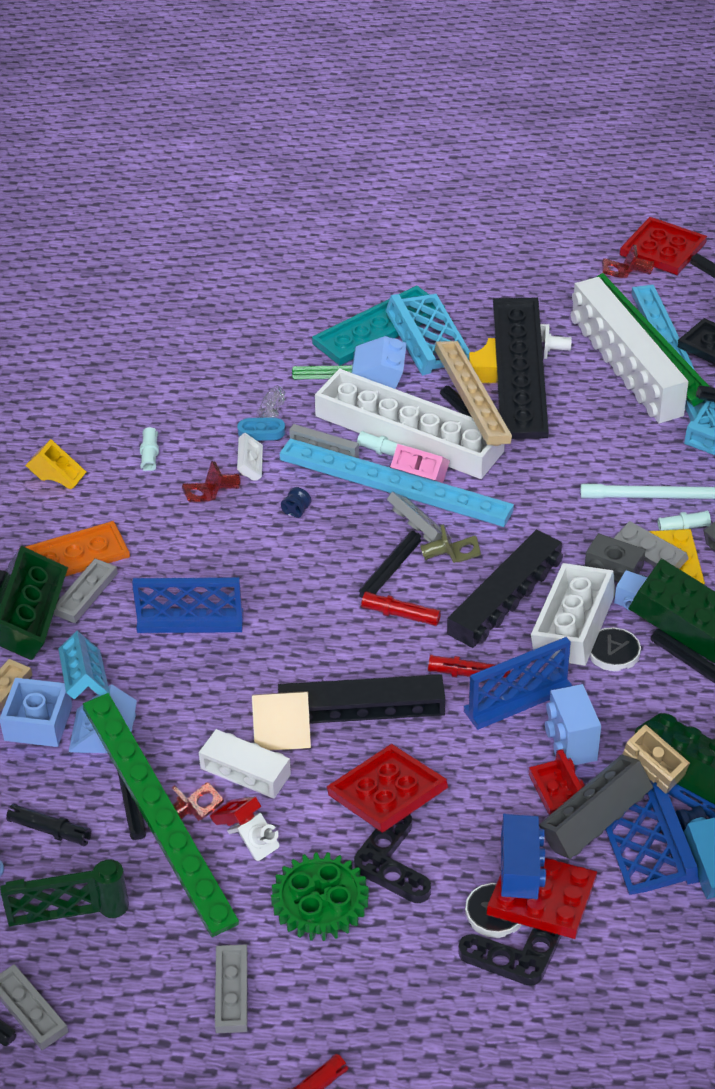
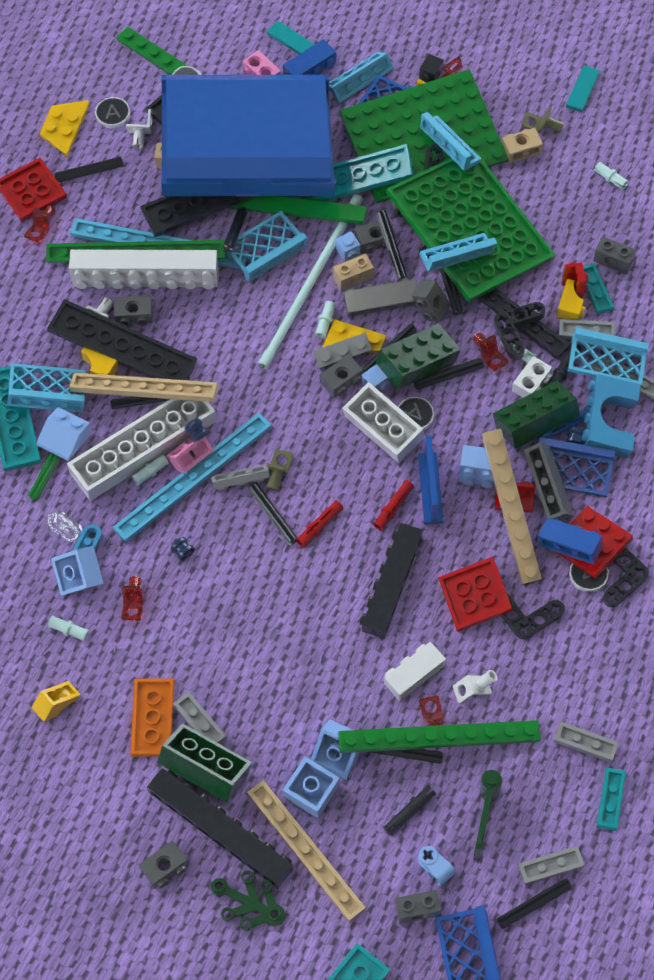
camera: 65 degrees left, 20 degrees up
(82, 666) = (290, 743): medium azure fence -> none
(158, 1050) = (611, 799): none -> teal tile
(188, 617) = (262, 657): blue fence -> none
(220, 428) = (77, 570): none -> light blue slope
(236, 811) = (457, 690): red plate -> none
(249, 457) = (118, 562): white plate -> none
(281, 720) = (393, 635): tile -> none
(319, 896) = (559, 667): green gear -> none
(324, 440) = (129, 505): light grey plate -> none
(444, 446) = (196, 429): none -> dark blue wheel
(504, 589) = (334, 452): black brick -> none
(528, 770) = (511, 506): none -> tan plate
(573, 364) = (125, 305): none -> dark grey brick
(657, 757) = (541, 431): tan brick -> none

